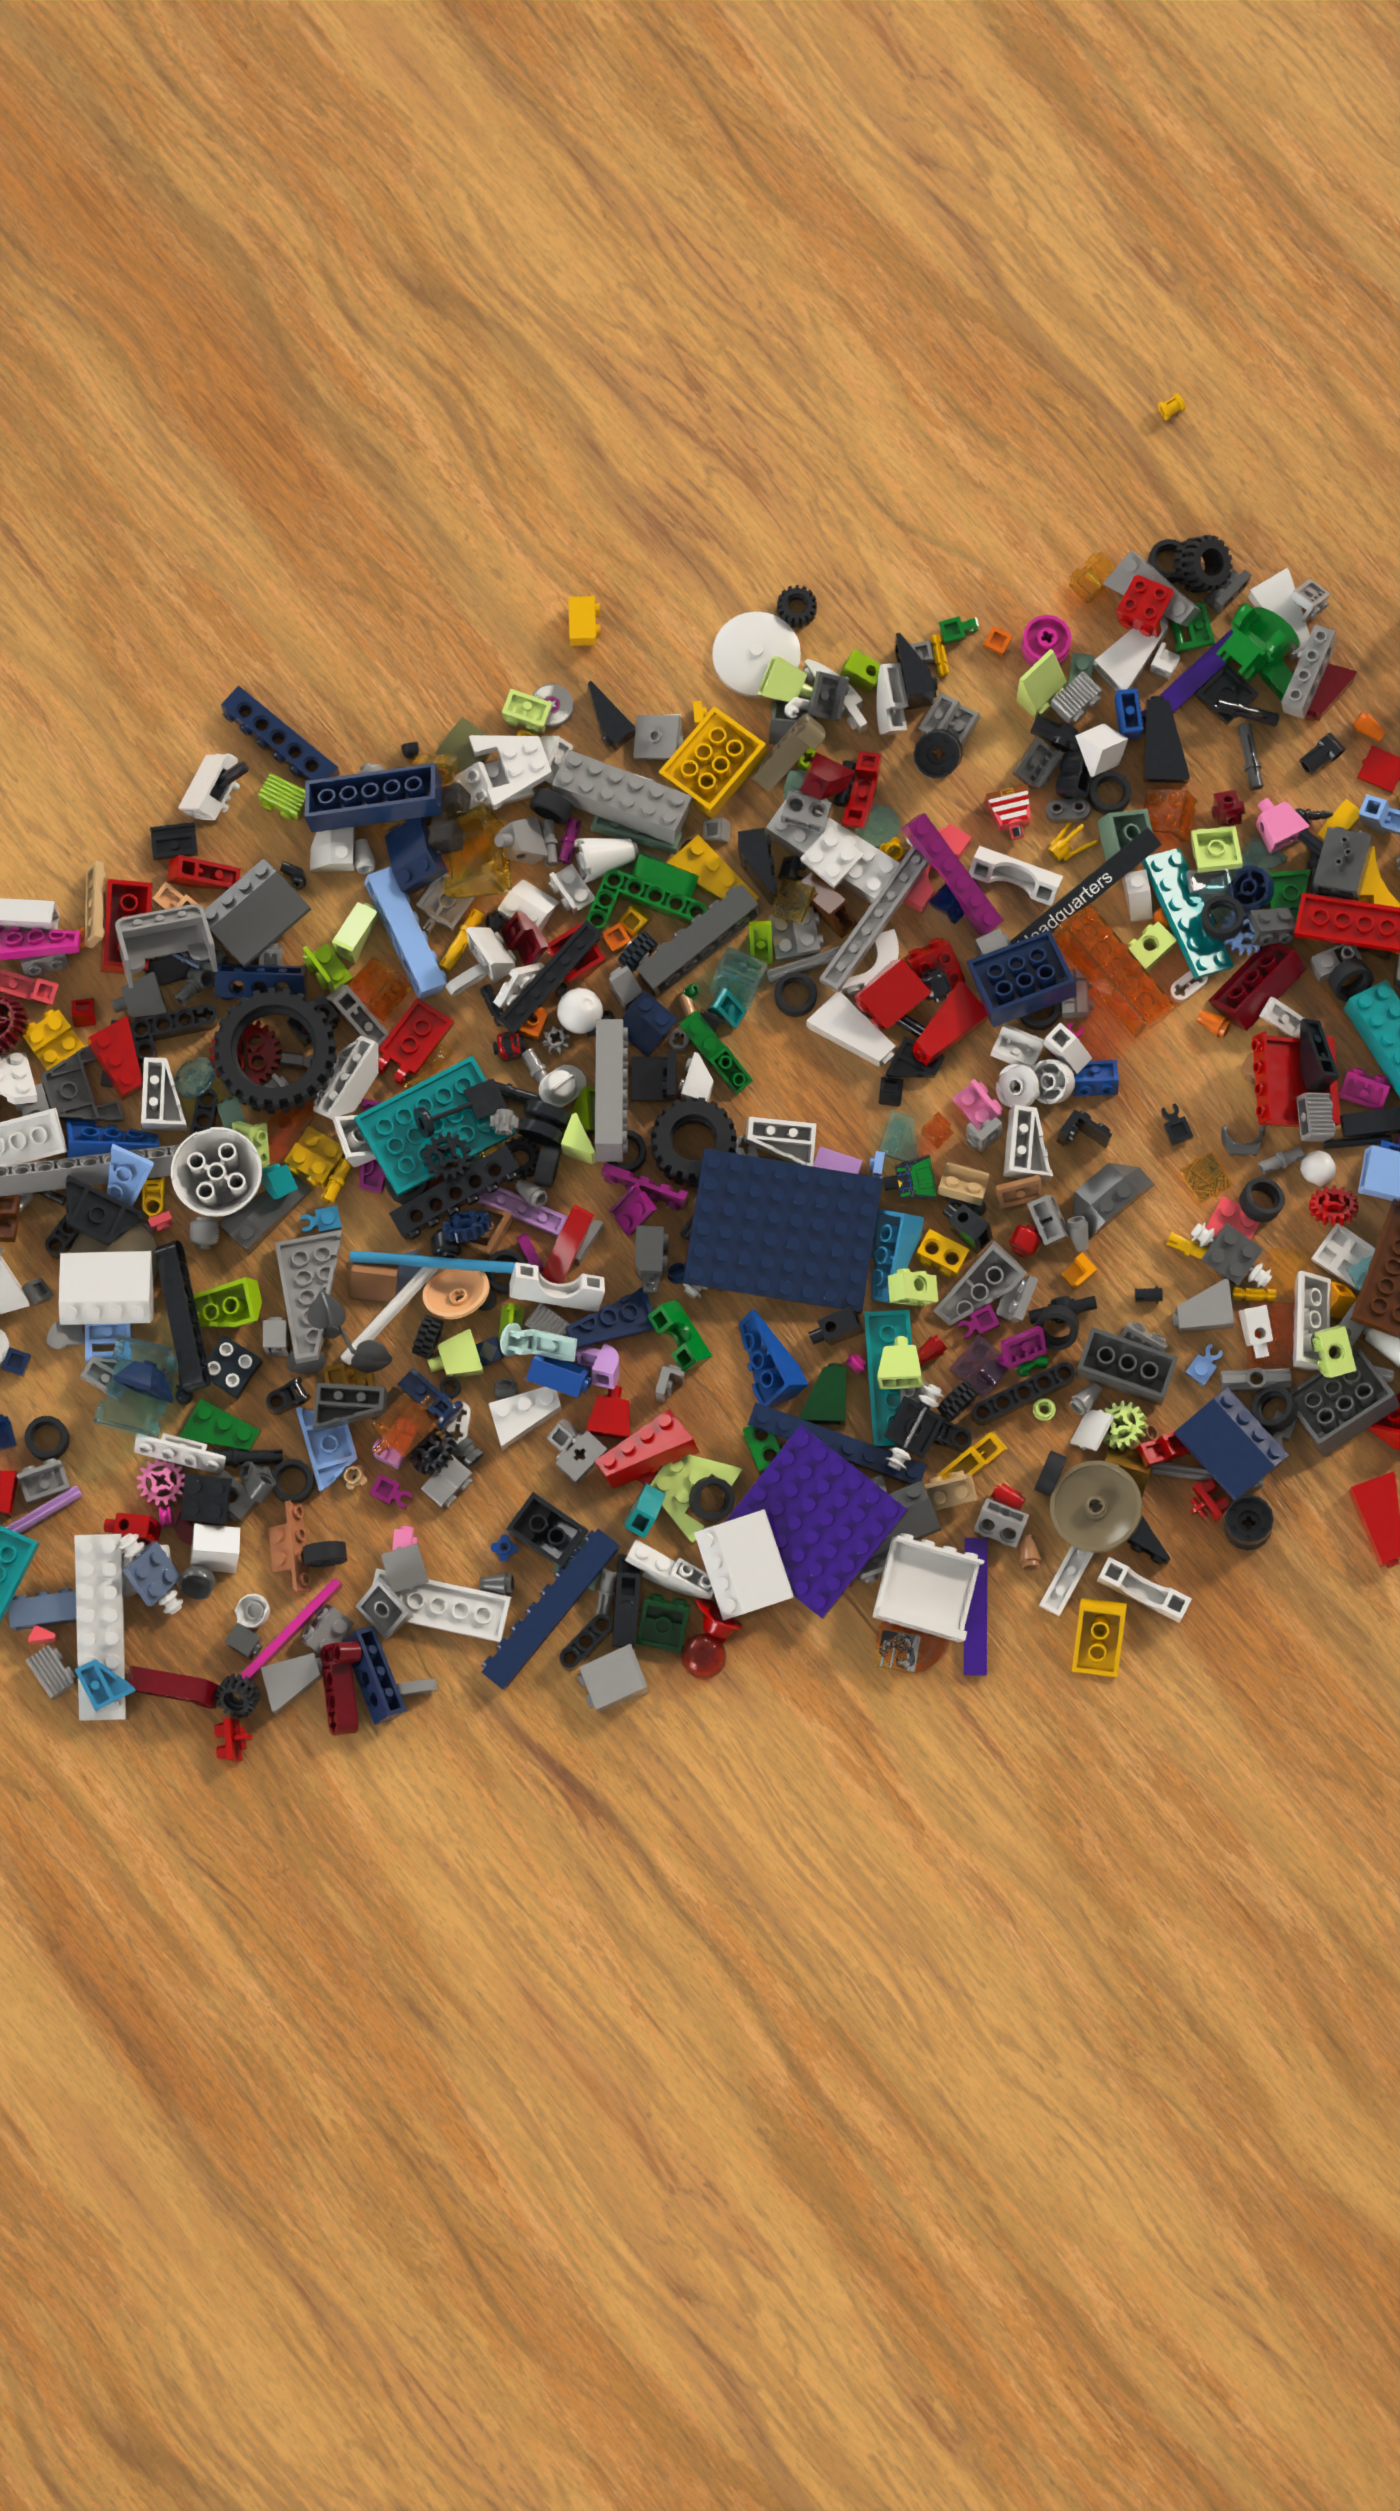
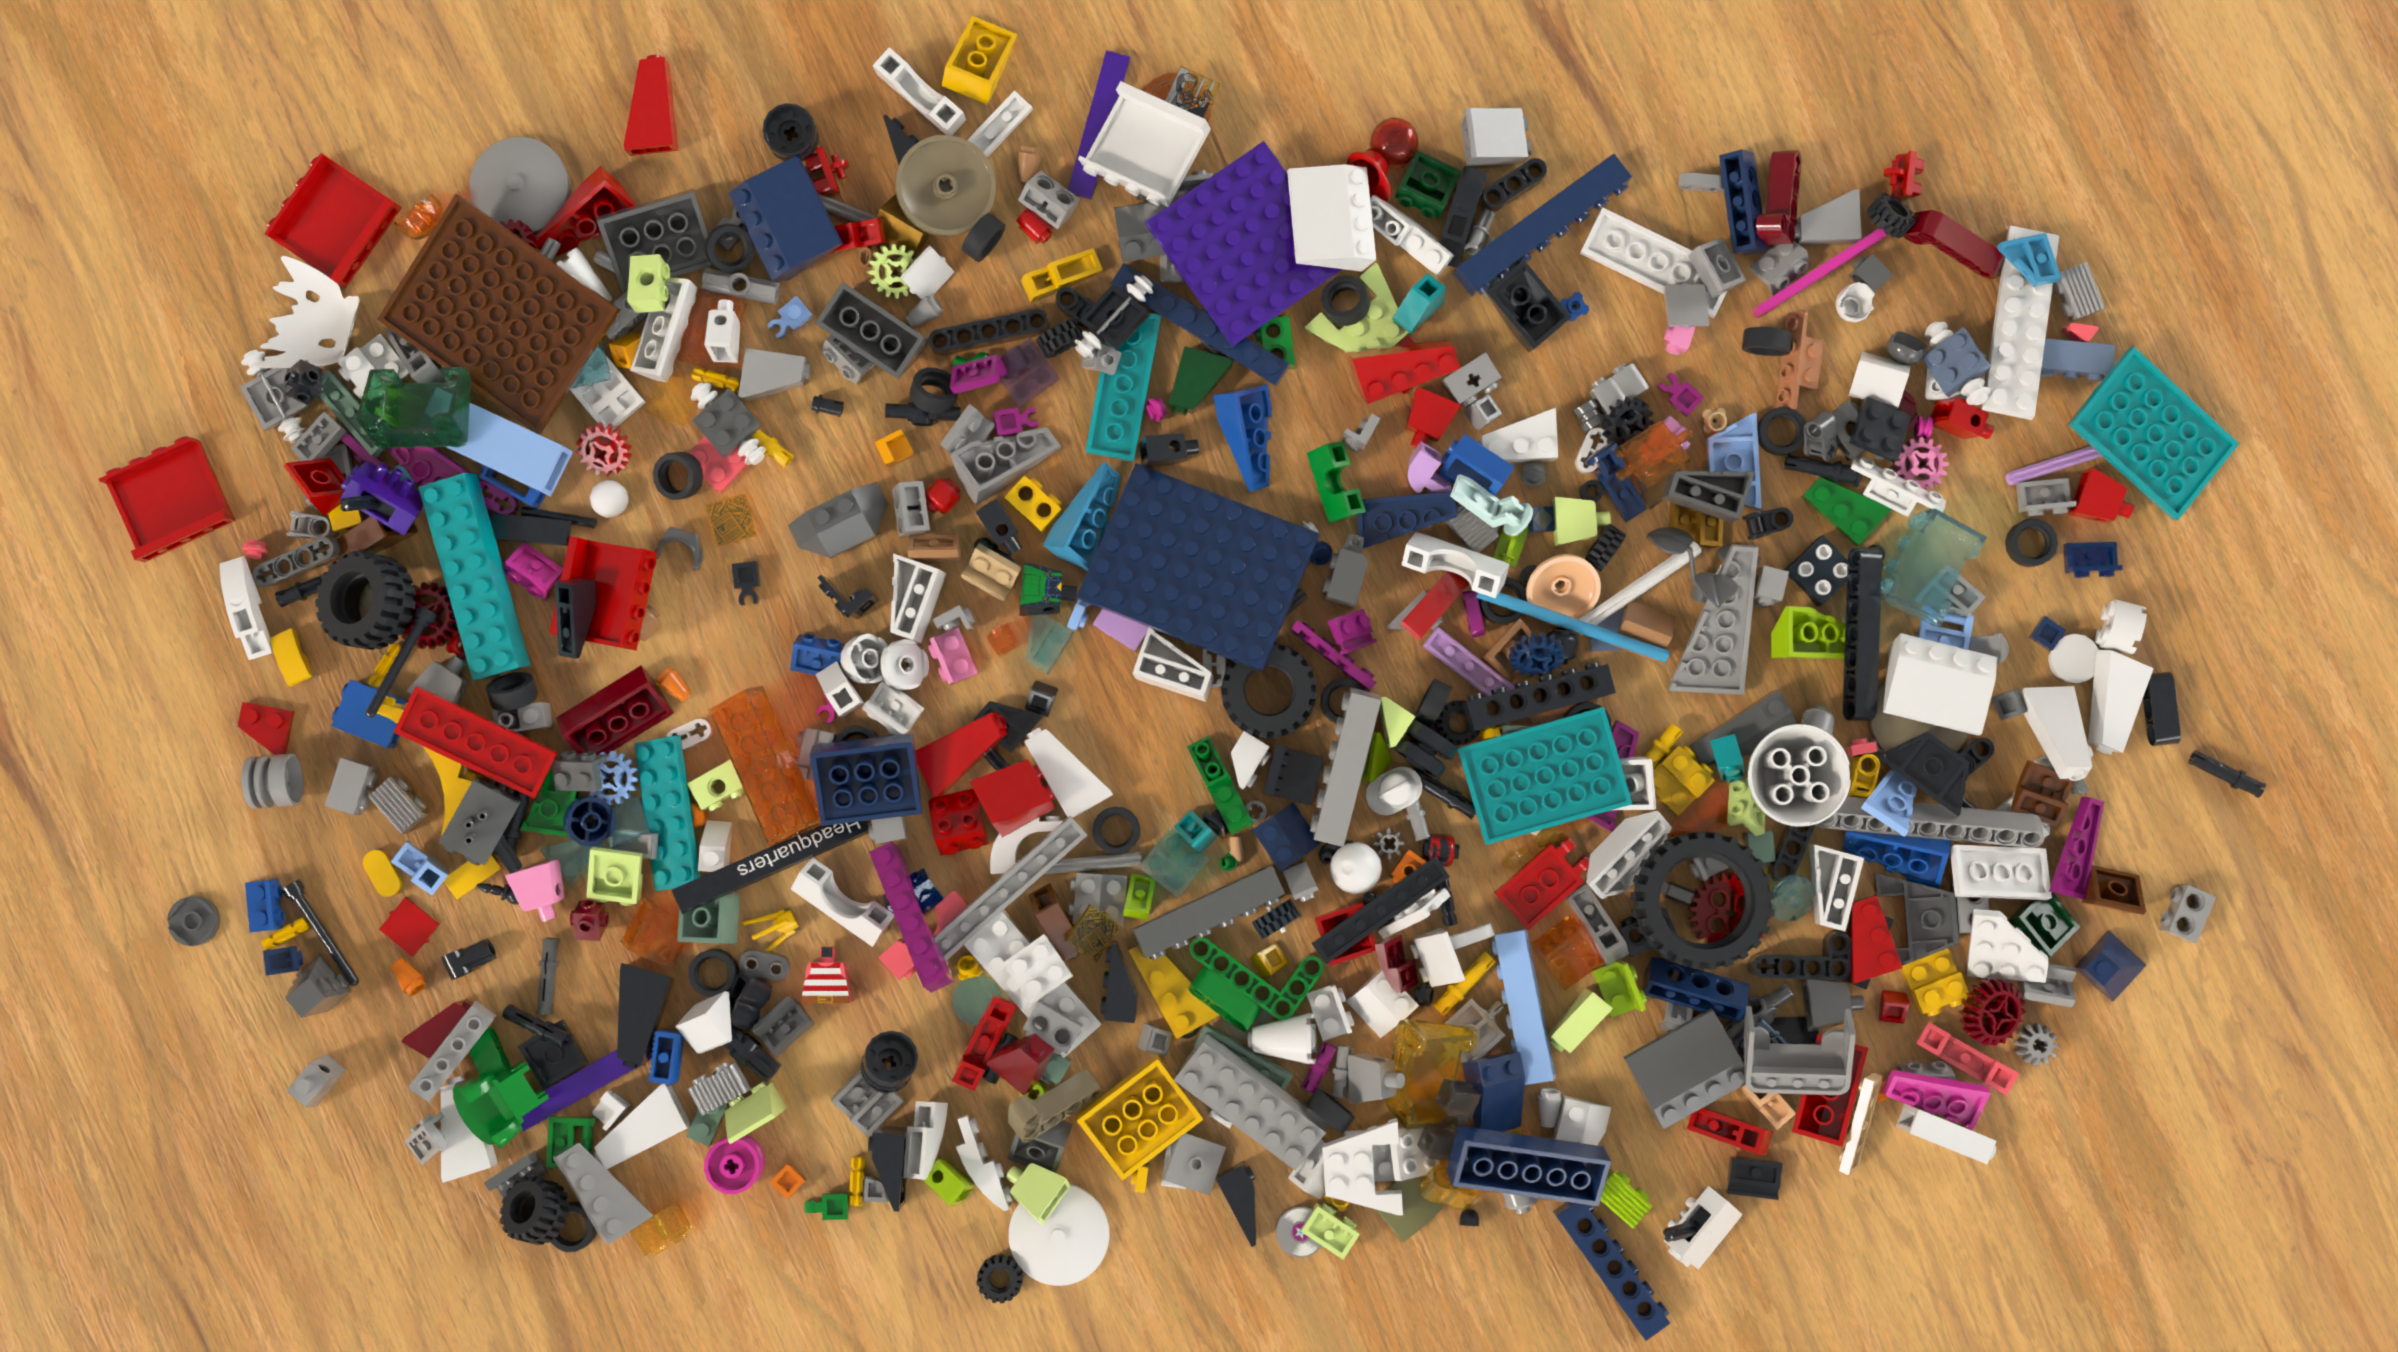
camera: 165 degrees left, 10 degrees up
(145, 1380) = (1921, 568): dark blue slope -> none
(297, 875) = (1626, 1105): black arm -> none
(326, 1220) = (1682, 708): dark azure plate -> none
(440, 1151) = (1549, 724): black gear -> none
(482, 1099) = (1485, 791): black piece -> none
(499, 1583) = (1588, 269): dark grey cone -> none
(504, 1122) = (1470, 758): light grey gear -> none
(533, 1194) = (1455, 676): light grey cone -> none
(582, 620) = (1242, 1321): yellow brick -> none
(616, 938) = (1295, 943): orange plate -> none
(790, 868) = (1085, 974): black tile -> none
(795, 705) = (1032, 1158): white arm -> none
(828, 696) = (993, 1158): dark grey bracket -> none
(900, 1366) = (1111, 386): yellowish green torso -> none
(912, 1288) = (1075, 470): yellowish green brick -> none
(931, 1350) = (1072, 404): red cone -> none
(938, 984) = (962, 798): black head -> none
(951, 1491) = (1092, 246): tan bracket -> none
(1047, 1403) = (966, 306): yellowish green plate -> none
(1078, 1231) = (882, 490): light grey cone -> none
(1144, 606) = (612, 1174): red bracket -> none
(1222, 901) = (615, 807): black tyre -> none
(1281, 1160) = (645, 516): light grey pin -> none
(1282, 1017) = (597, 669): white plate -> none
(1315, 1117) = (594, 546): light grey brick -> none

